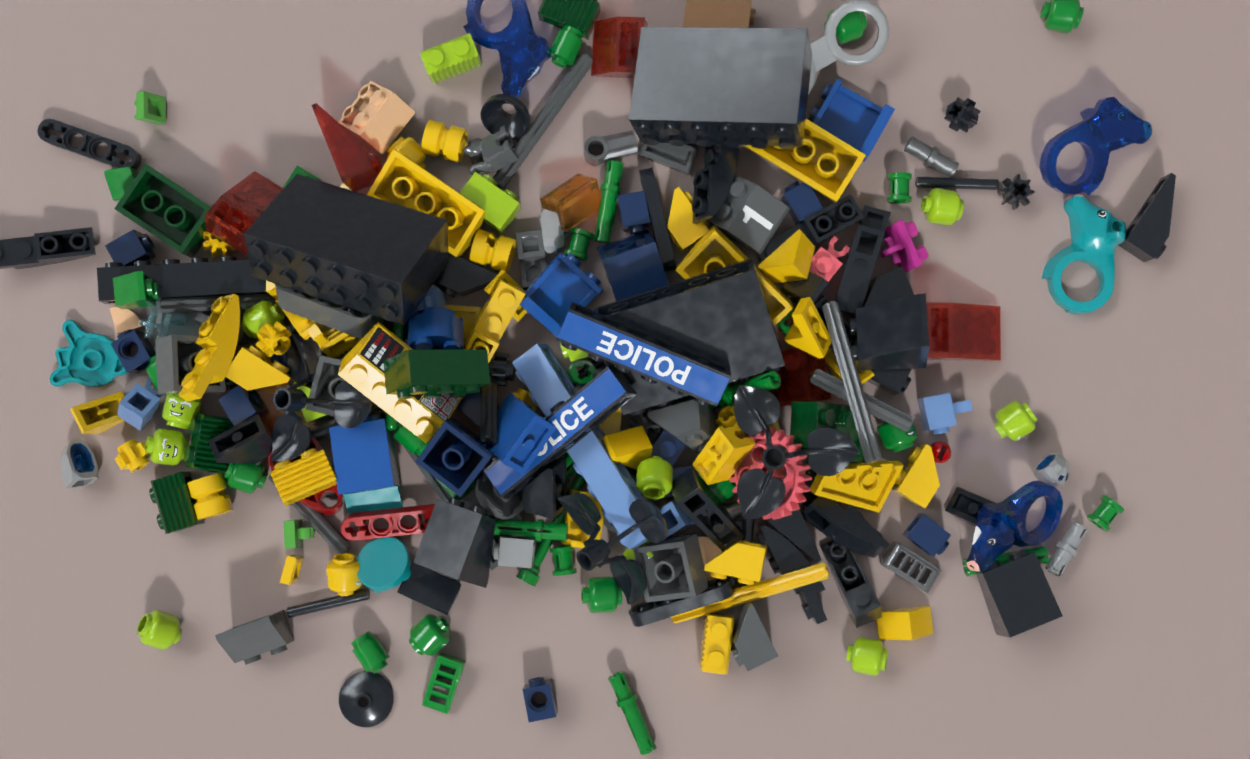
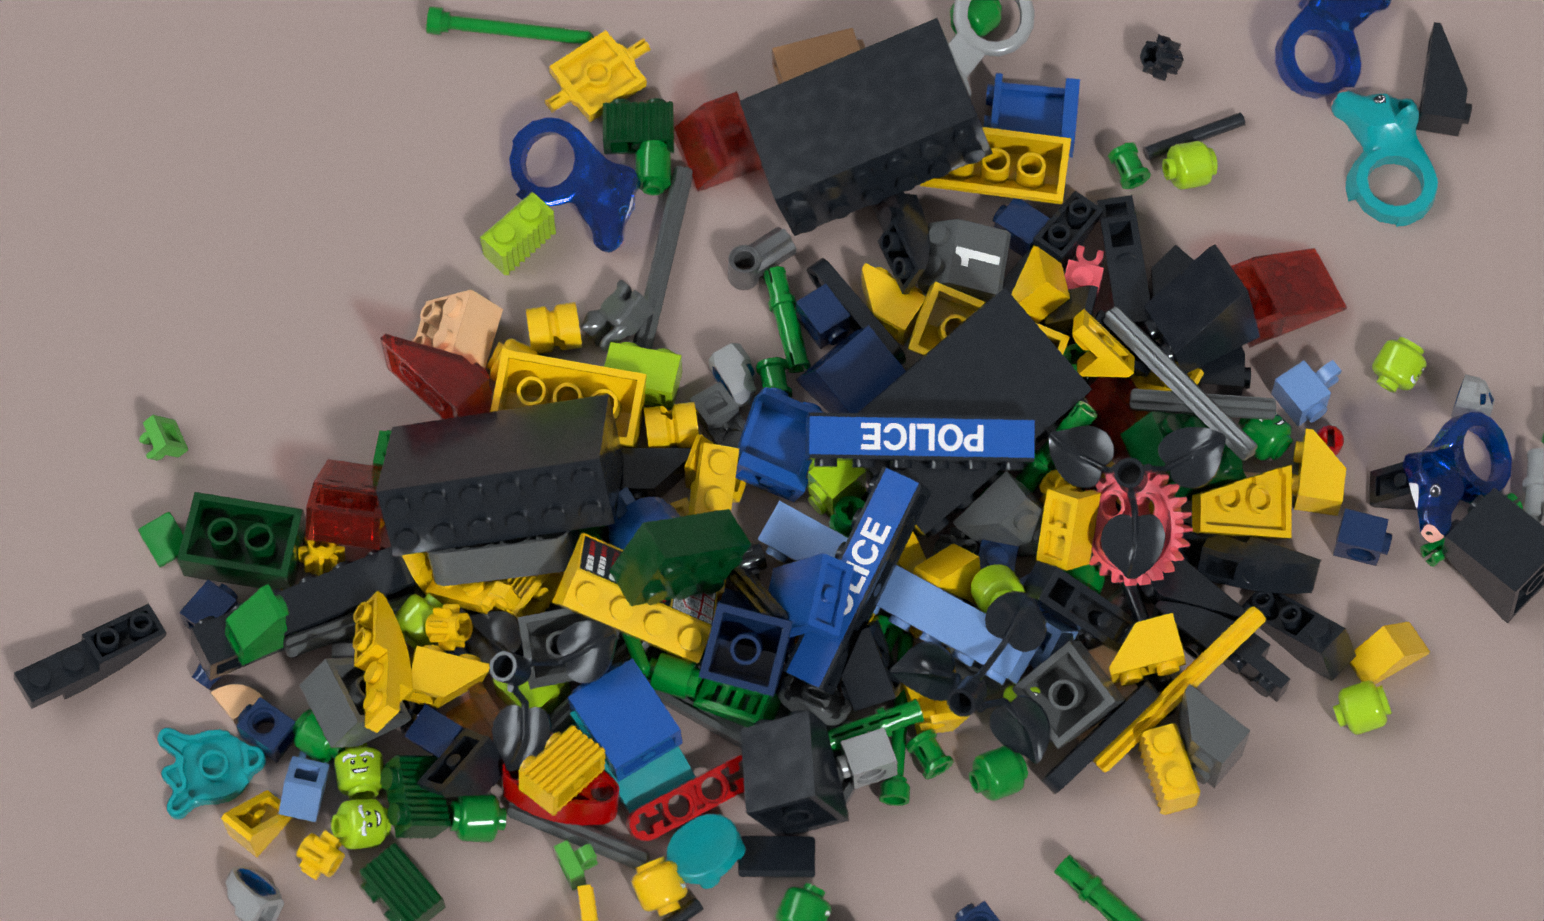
camera: 30 degrees left, 20 degrees down
(89, 144) = (101, 508): black beam -> none
(172, 318) = (285, 683): clear light blue hips -> none
(210, 496) = (438, 857): yellow wheel -> none
(494, 116) = (603, 281): black piece -> none
(573, 200) = (748, 328): clear orange panel -> none
(675, 157) = (835, 238): dark grey tile -> none
(891, 556) = (1348, 595): flat silver slope -> none
(901, 247) = (1164, 227): dark pink hips -> none
(931, 156) = (1149, 118): flat silver pin -> none
(1024, 191) = (1271, 107): black gear -> none

